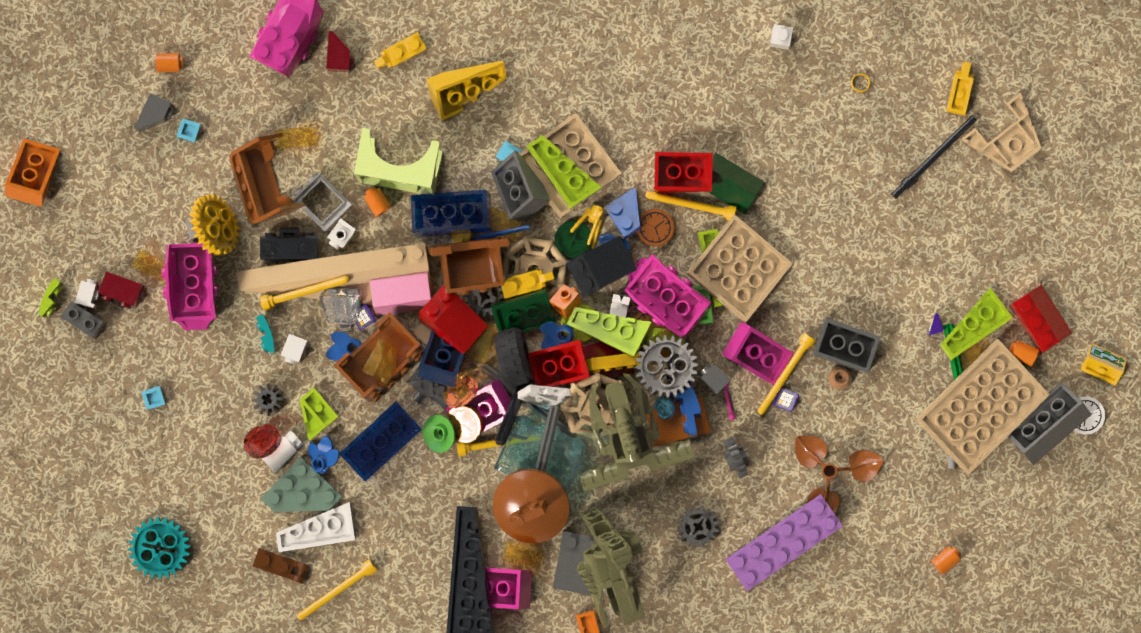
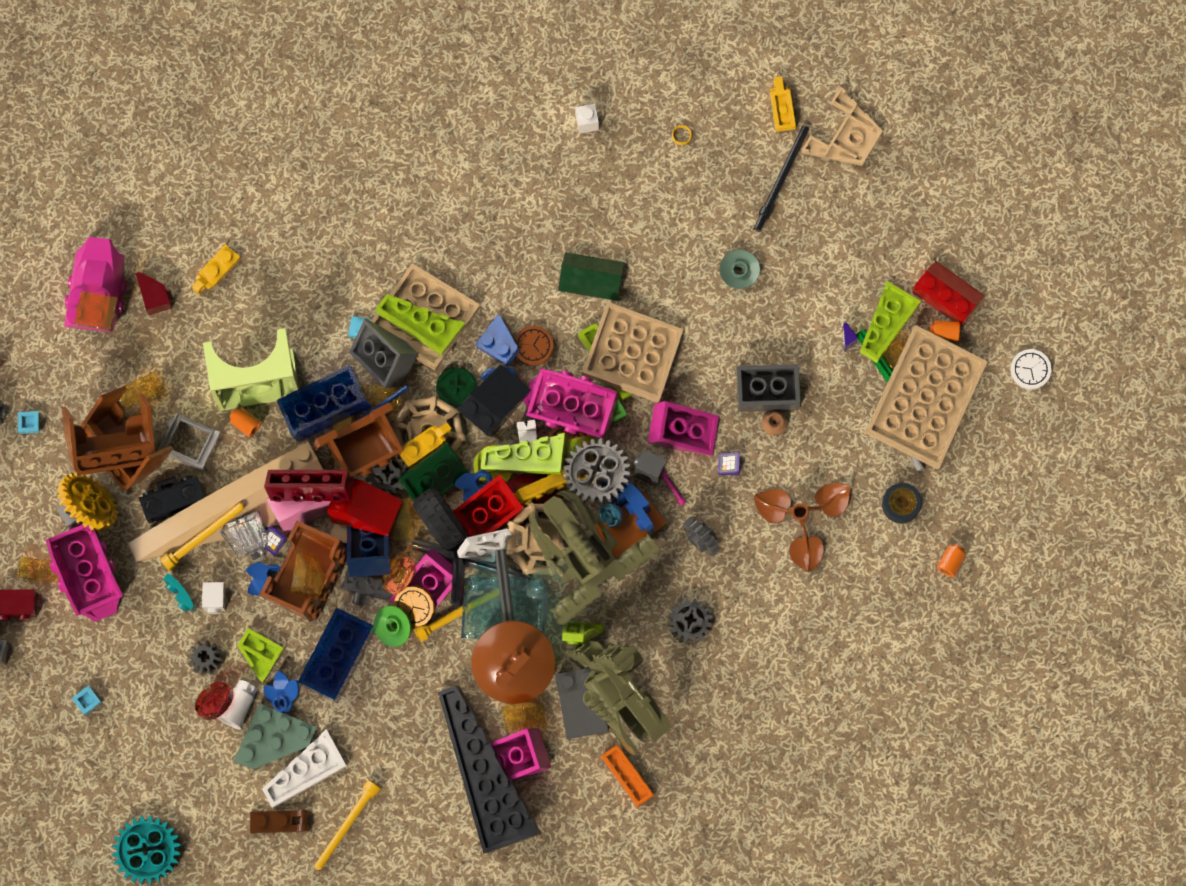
camera: 20 degrees left, 10 degrees down
(250, 185) = (114, 449): none -> dark orange windscreen
(280, 56) = (95, 310): none -> piece
(348, 232) = (224, 474): white brick -> none
(410, 286) = (309, 485): none -> dark red brick
(458, 87) = (285, 282): yellow wedge -> none
(565, 301) = (471, 447): orange brick -> none
(596, 216) = (470, 356): yellow plant -> none
(599, 501) = (581, 631): none -> lime wing
(683, 172) = (540, 279): red slope -> none
(727, 212) = (599, 304): yellow piece -> none
(784, 542) = (782, 603): medium lavender plate -> none
(805, 344) = (727, 401): yellow piece -> none
(873, 227) = (743, 260): none -> sand green dish
(912, 492) = (901, 514): none -> wheel
(1049, 423) = (998, 389): dark grey slope -> none
(1104, 364) = (1028, 314): panel -> none

